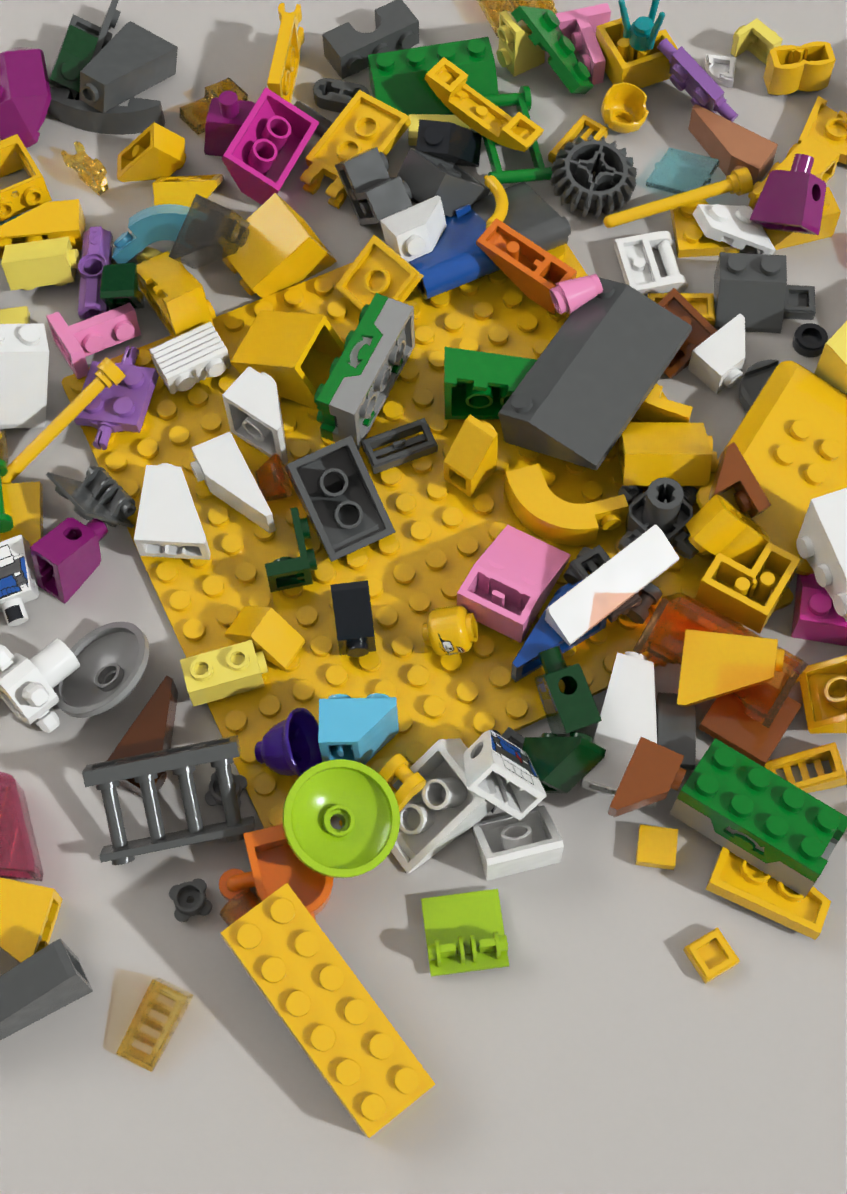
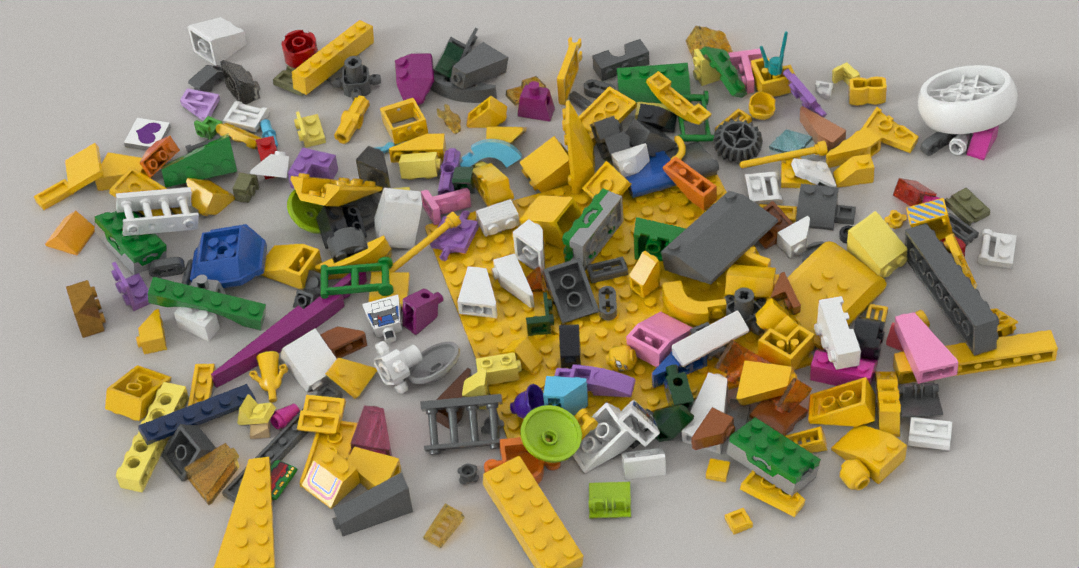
camera: 10 degrees right, 15 degrees down
(97, 497) = (440, 280): dark grey hinge -> none
(187, 717) = (476, 385): none -> light yellow slope
(209, 234) = (515, 154): clear smoke slope -> none
(268, 146) = (547, 114): dark pink slope -> none
(323, 214) = (579, 149): none -> yellow wedge
(411, 683) = (600, 380): none -> medium lavender slope
(416, 512) = (611, 302): none -> dark grey beam
(574, 293) = (712, 196): bright pink cone -> none
(792, 199) = (846, 158): magenta torso -> none

